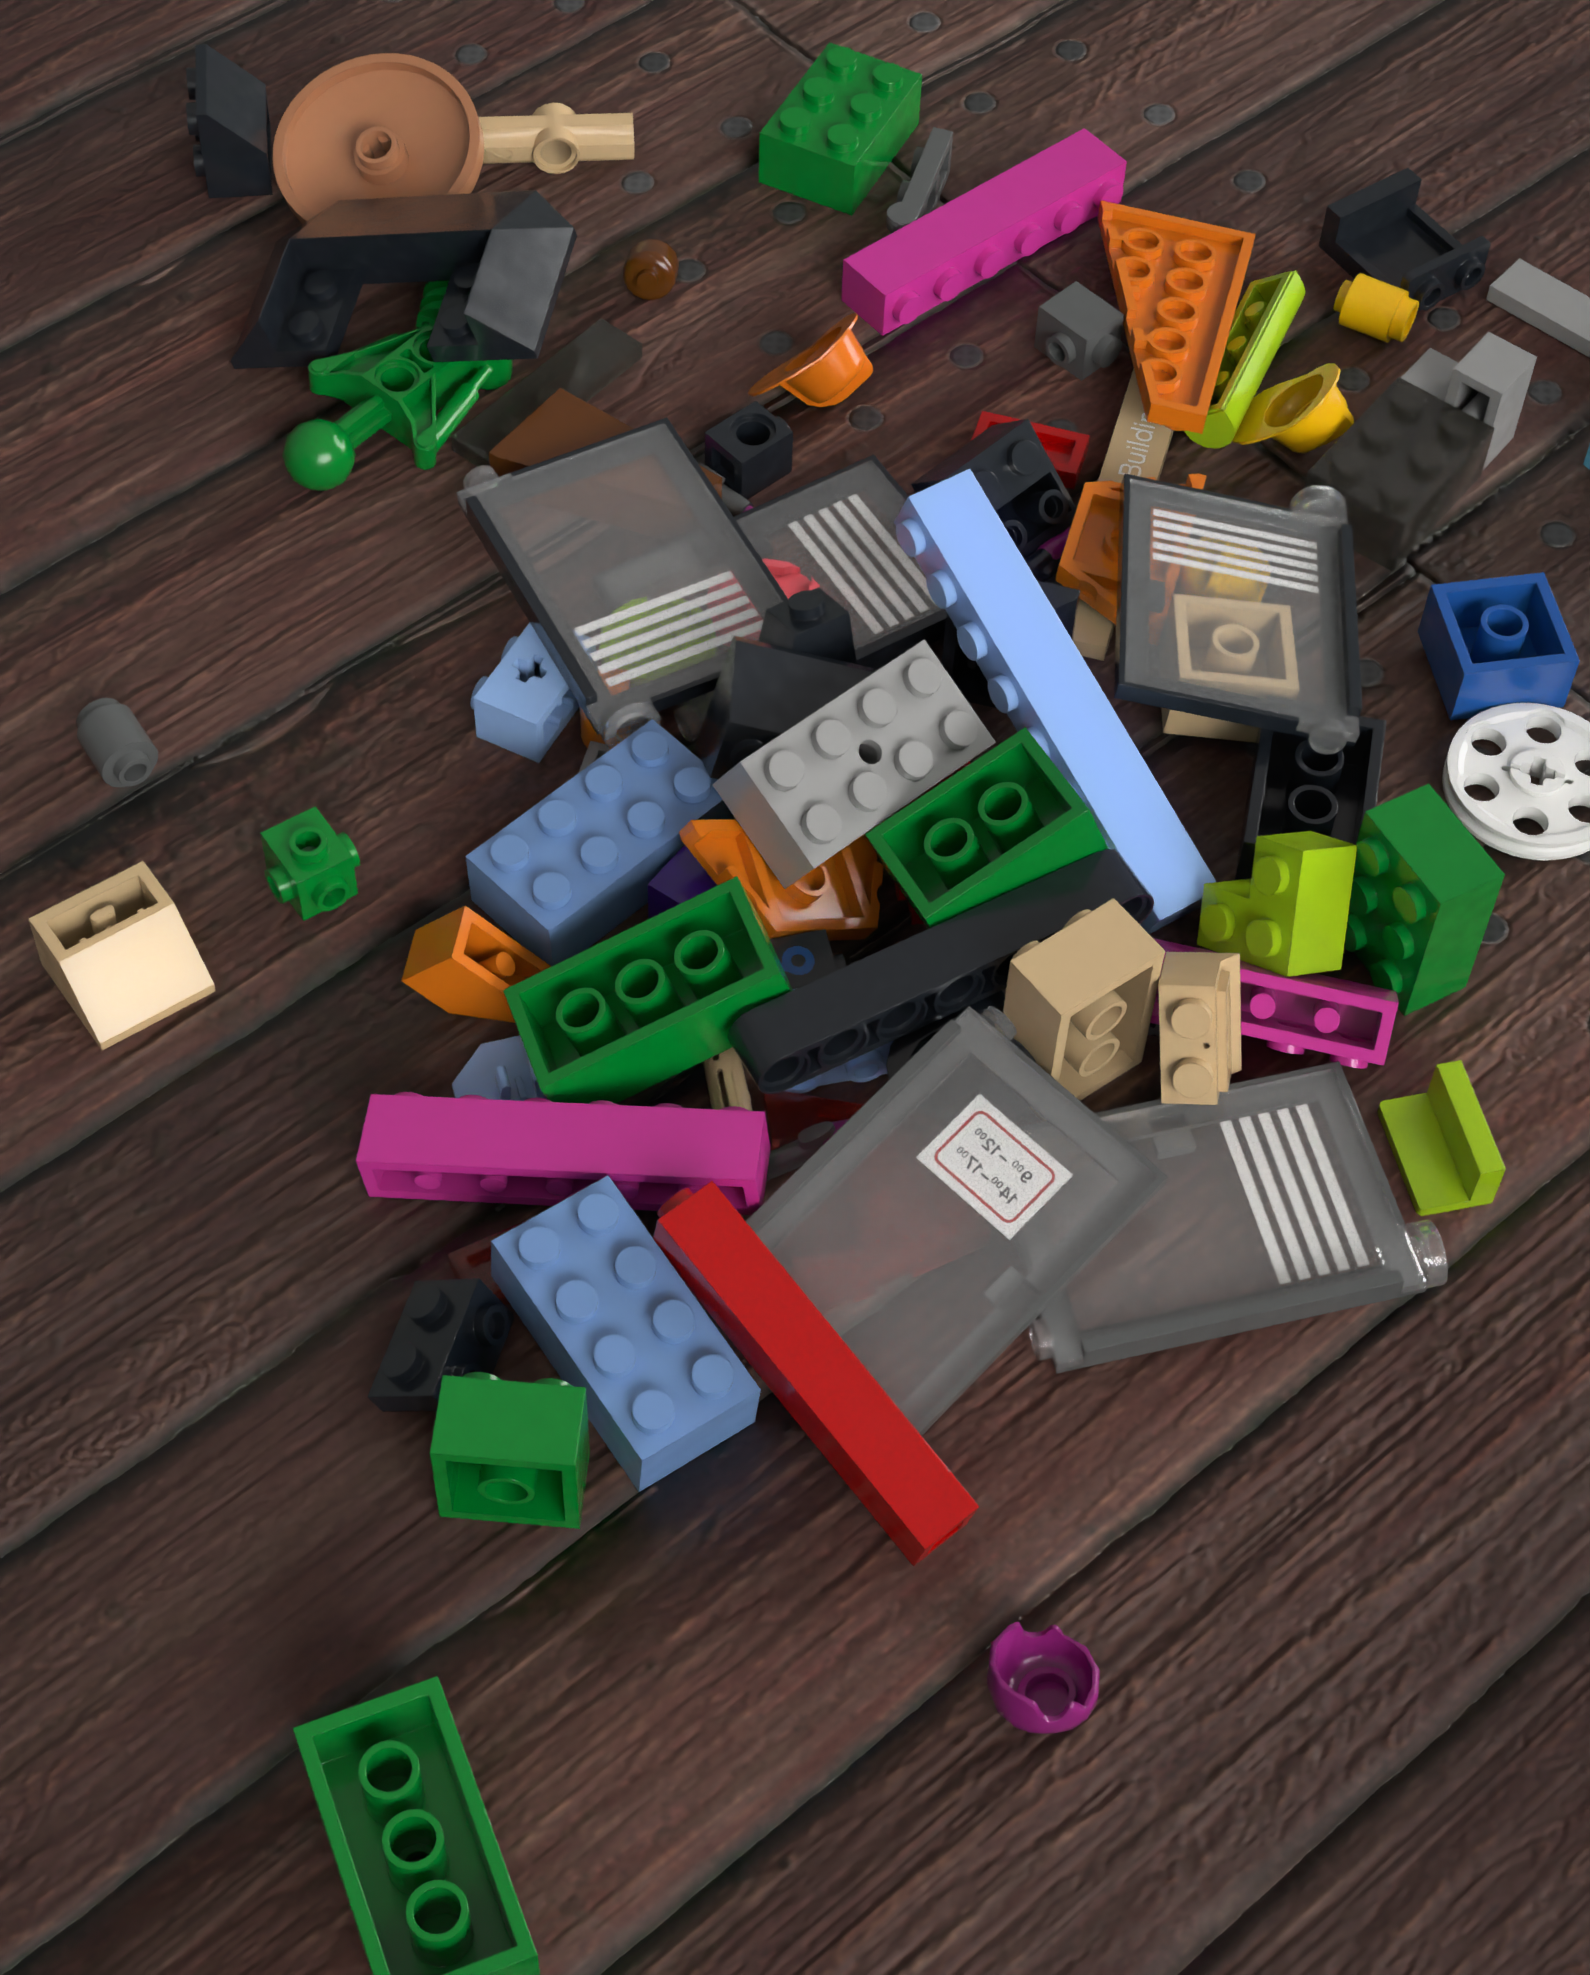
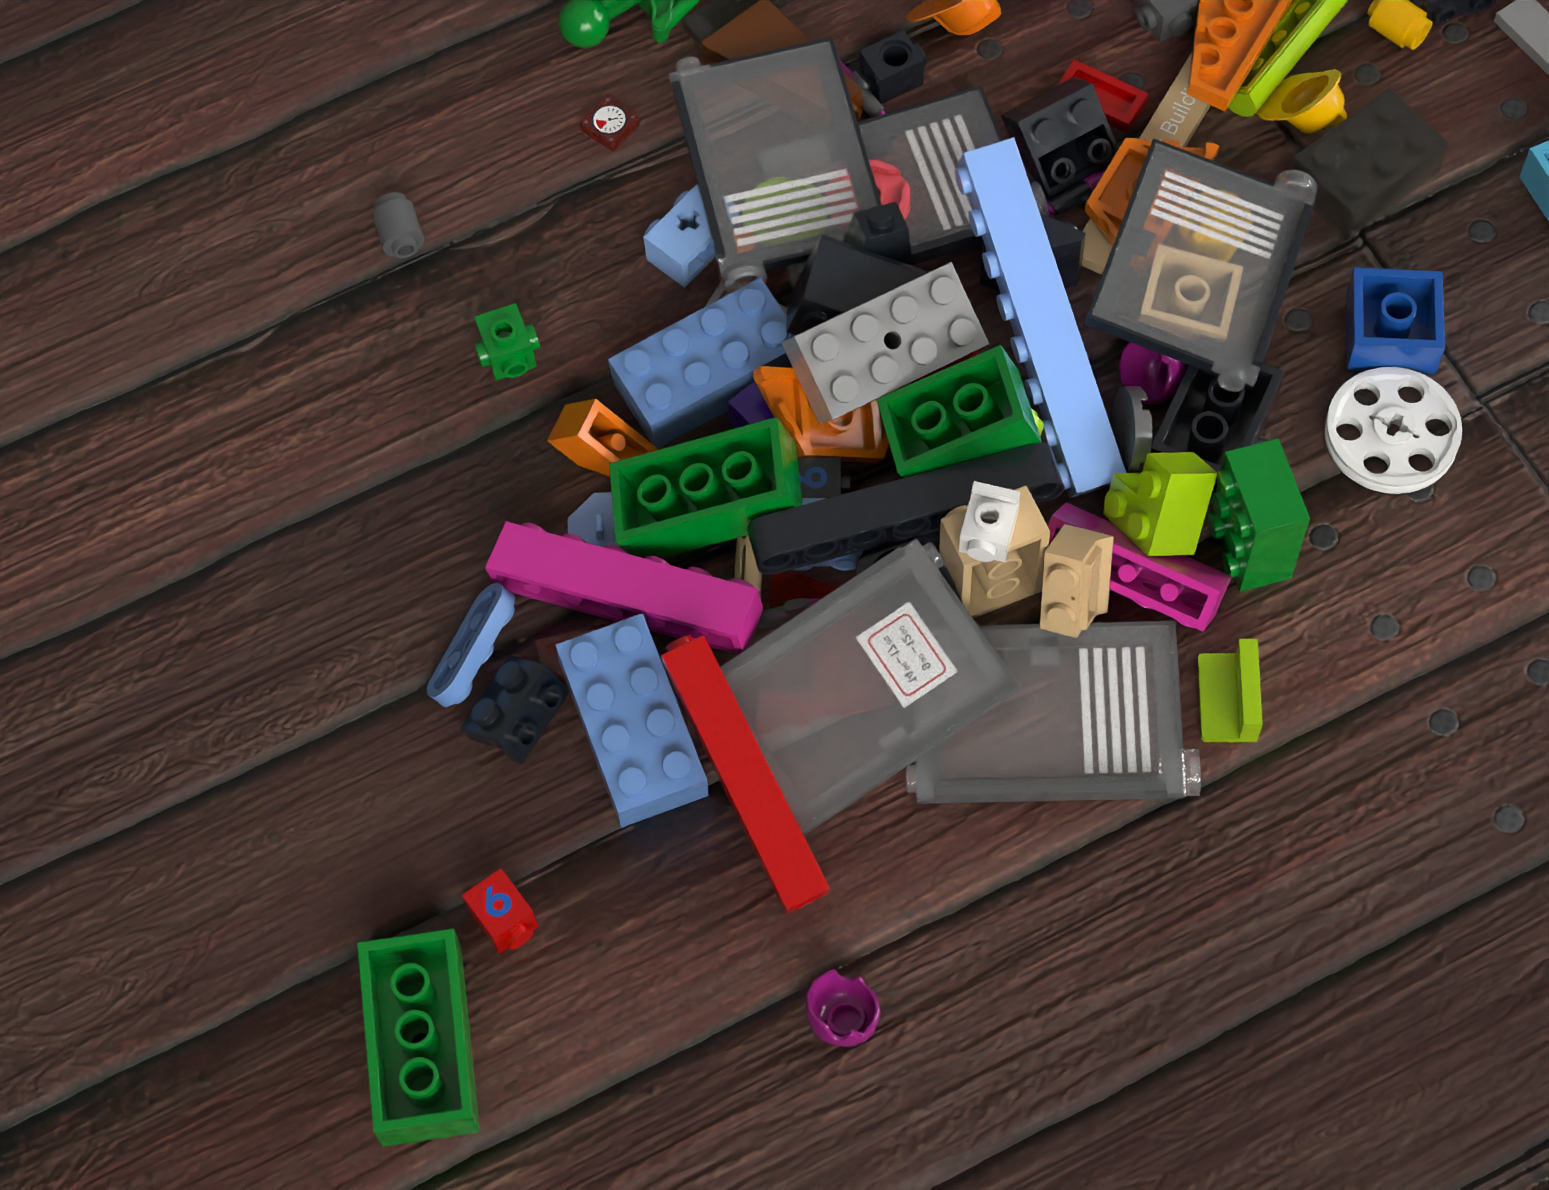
camera: 20 degrees right, 10 degrees up
(121, 955) = (367, 388): slope -> none
(356, 1277) = (471, 645): none -> medium blue plate
(383, 575) = (609, 123): none -> tile
(494, 1644) = (501, 911): none -> red brick
(511, 1450) = (538, 787): green brick -> none
(1085, 947) = (999, 509): none -> white brick
(1205, 756) = (1151, 371): none -> magenta hair
(1211, 820) = (1132, 427): none -> flat silver tile
(1484, 384) = (1448, 105): light grey brick -> none

